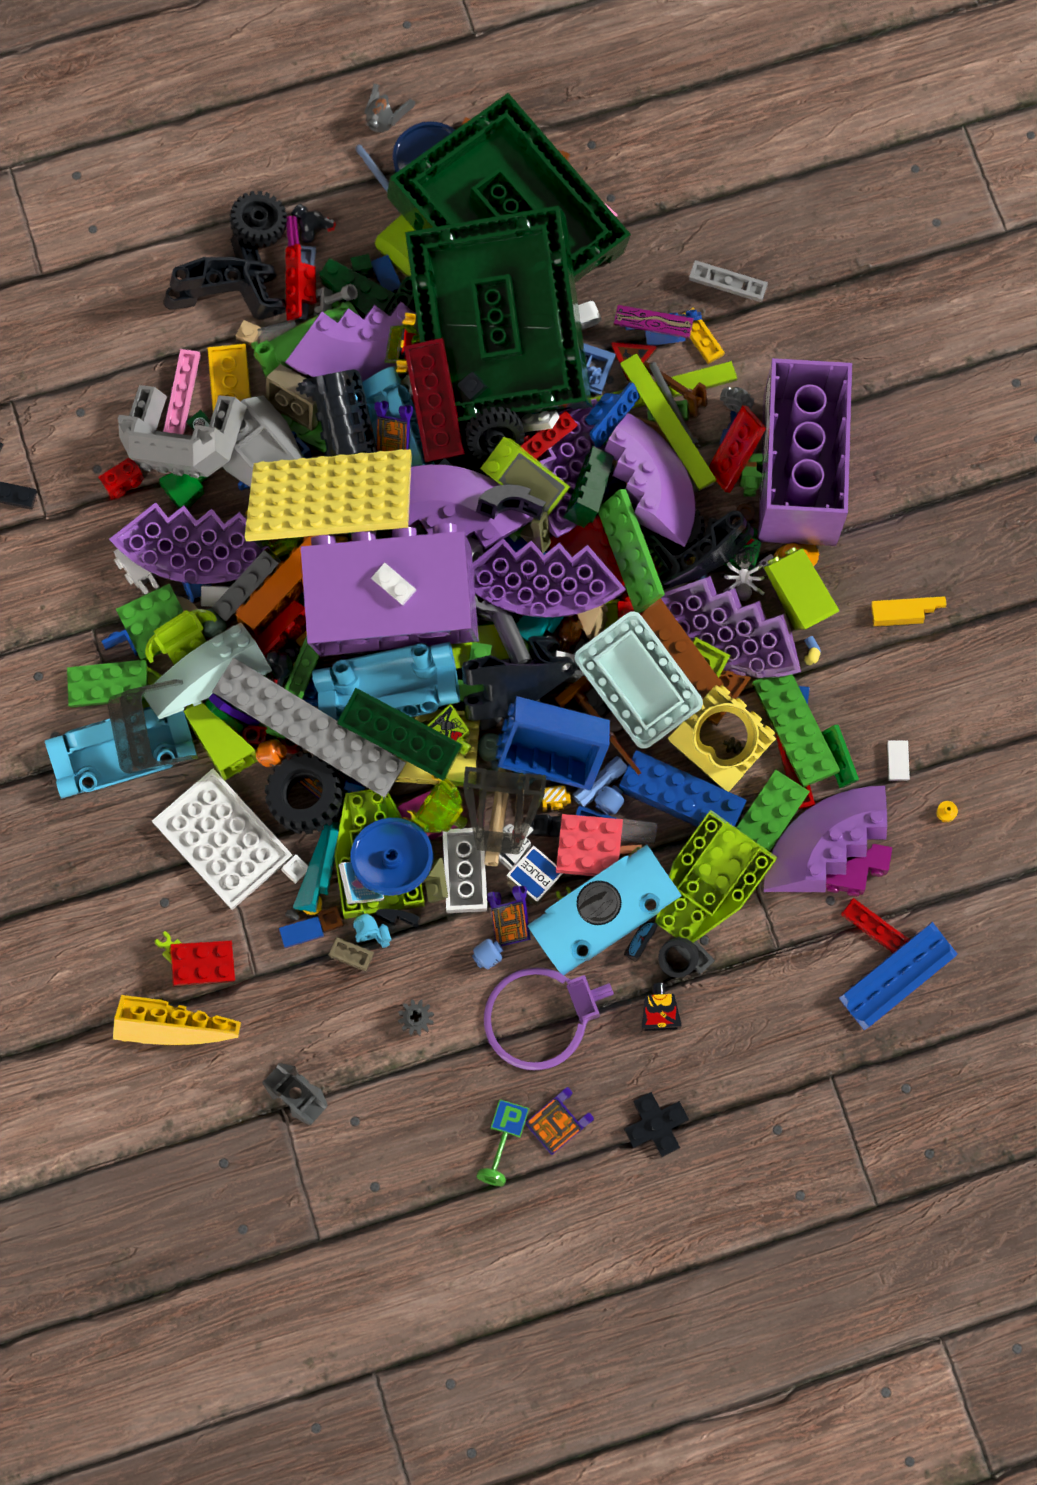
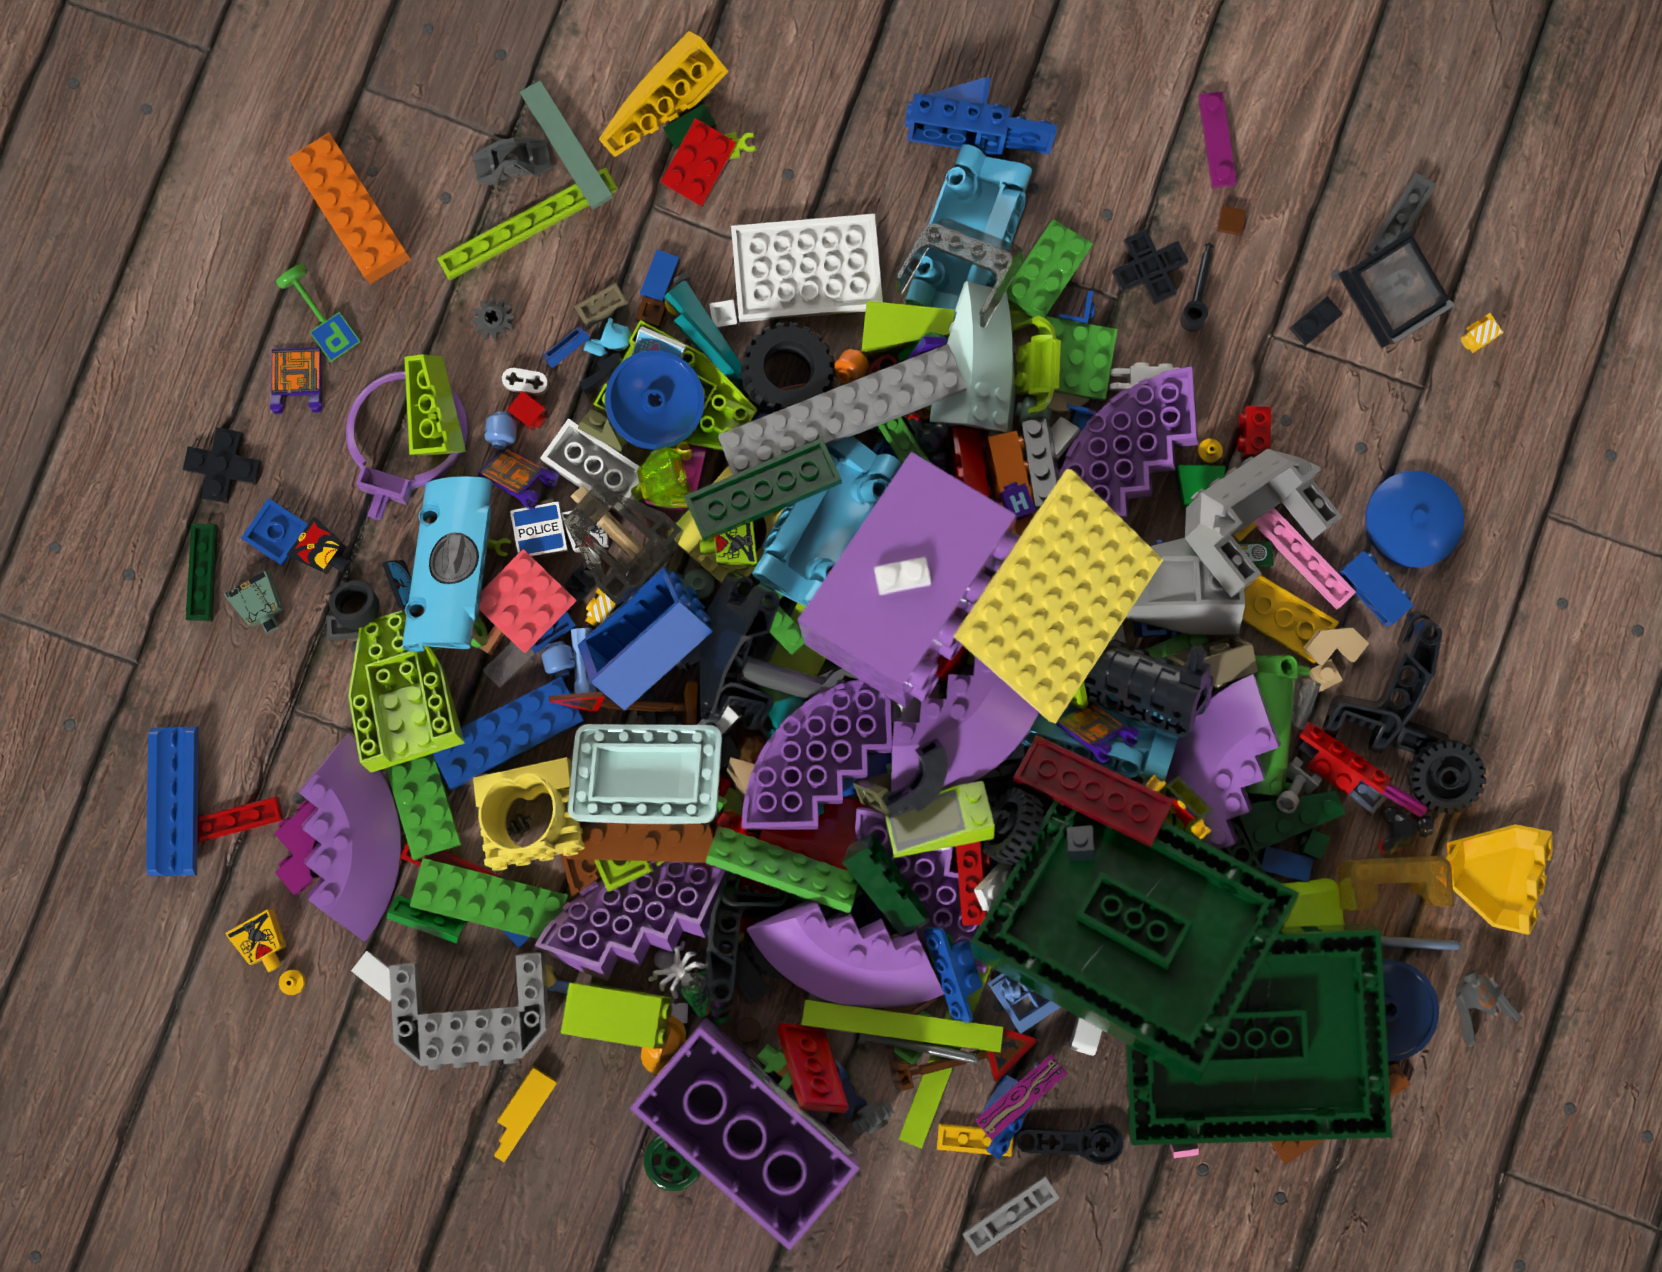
camera: 125 degrees right, 10 degrees up
(40, 802) = (966, 110): none -> blue wedge
(56, 621) = (1150, 267): none -> black plate
(61, 573) = (1196, 305): none -> black piece
(105, 348) = (1414, 519): none -> blue dish
(152, 497) = (1206, 455): none -> yellow tile
(169, 339) = (1376, 588): none -> blue brick
(186, 994) = (679, 128): none -> dark green tile
(227, 345) = (1326, 641): none -> tan tile
(256, 1063) = (566, 145): none -> sand green tile
(284, 577) = (1017, 500): none -> dark purple brick
(295, 149) = (1502, 874): none -> yellow panel
(331, 1049) = (517, 229): none -> lime tile
(357, 221) = (1427, 874): none -> clear yellow windscreen
(398, 954) = (565, 346): none -> blue tile
(413, 1175) = (349, 208): none -> orange brick
(445, 963) = (525, 375): none -> white beam
(461, 945) = (528, 411): none -> red brick
(510, 1005) = (431, 408): none -> lime wedge
(654, 277) = (1078, 1142): none -> black beam
(672, 1050) = (274, 531): none -> blue plate
(727, 1024) = (257, 601): none -> sand green torso
(737, 1080) = (201, 572): none -> dark green tile
(875, 504) = (655, 1171): none -> dark green plate
(885, 664) = (470, 1034): none -> light grey wedge
(938, 850) = (259, 939): none -> yellow torso

